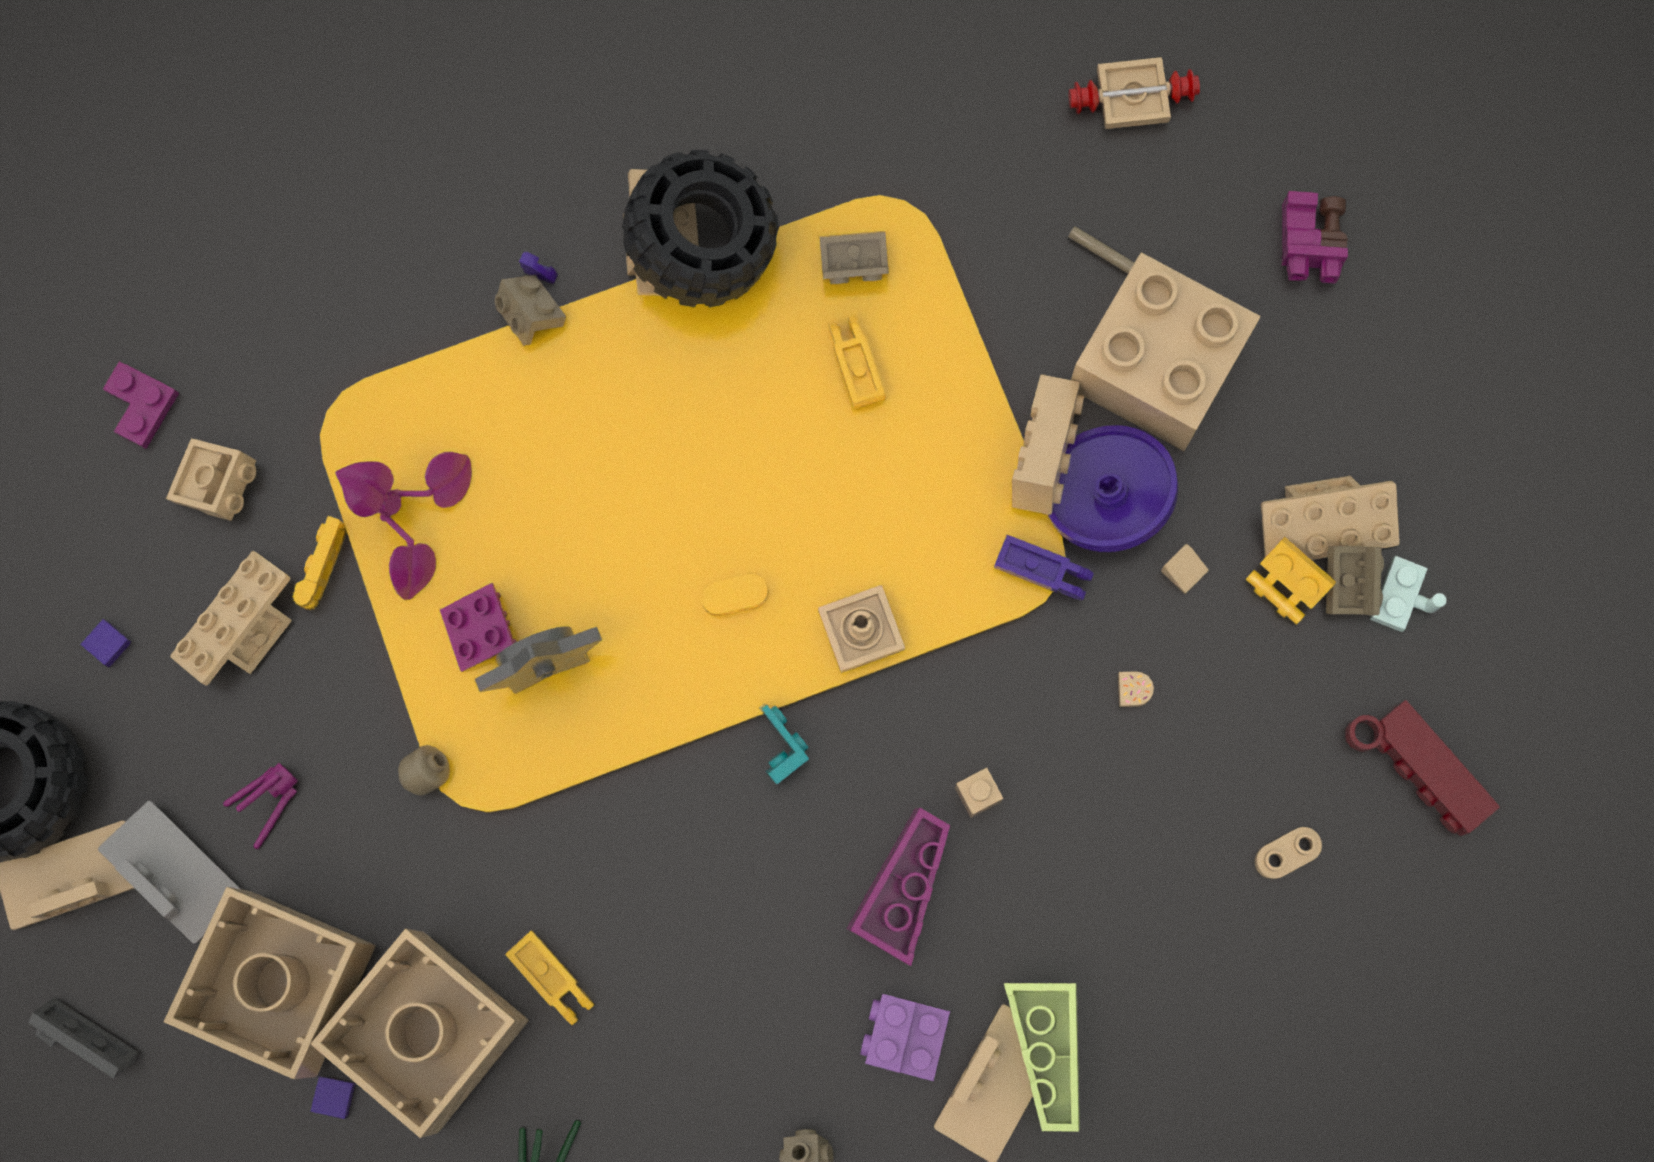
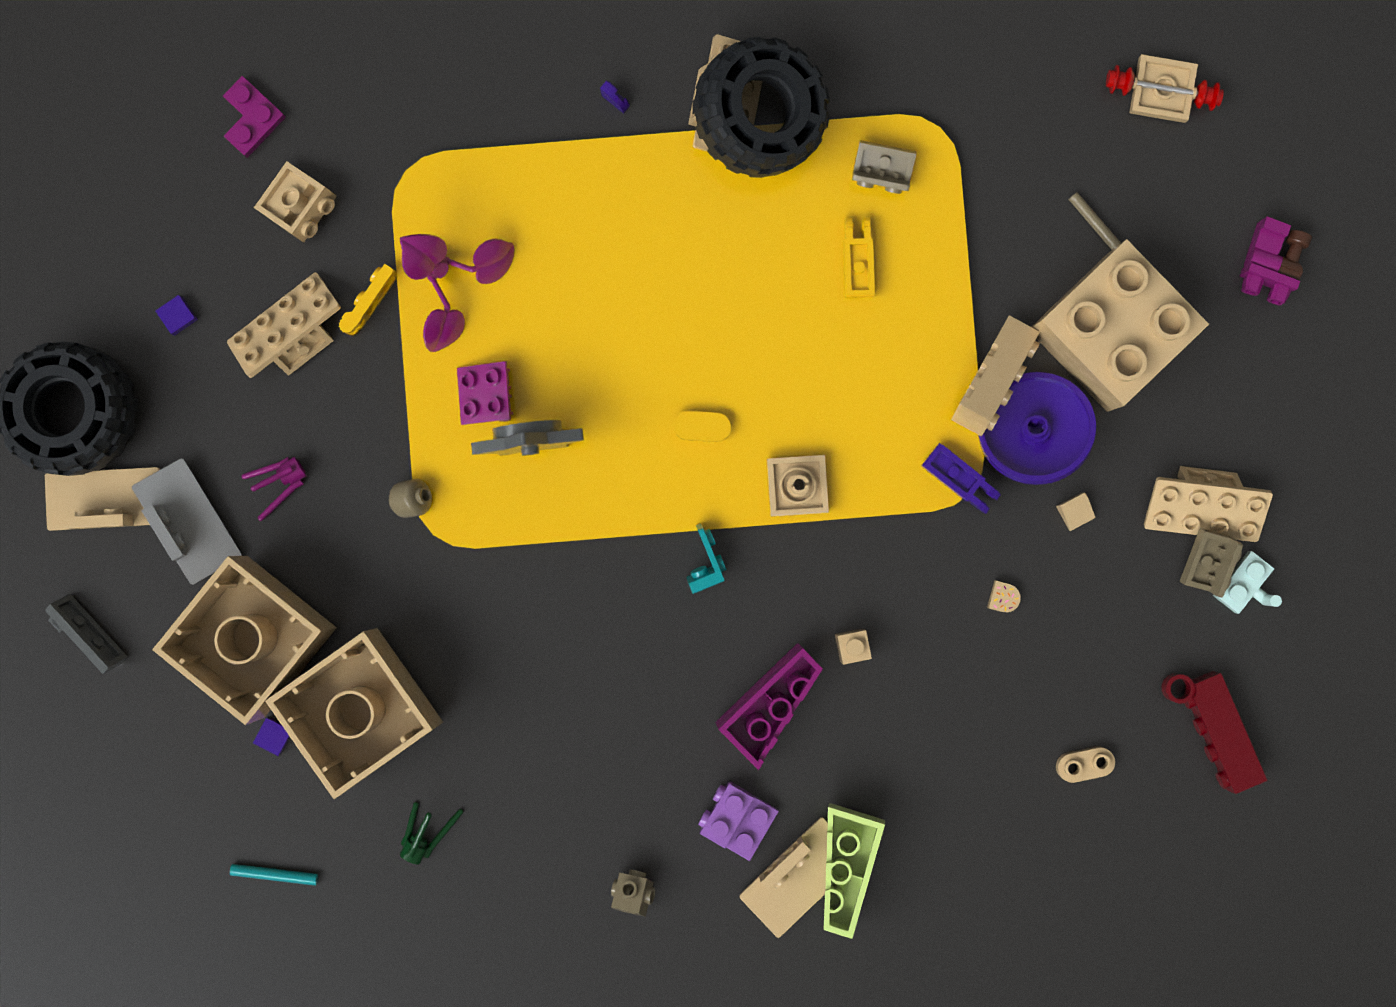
camera: 15 degrees right, 10 degrees up
(527, 307) = (597, 129): dark tan bracket -> none
(547, 974) = (467, 690): yellow hinge -> none
(1295, 572) = (1167, 544): yellow plate -> none

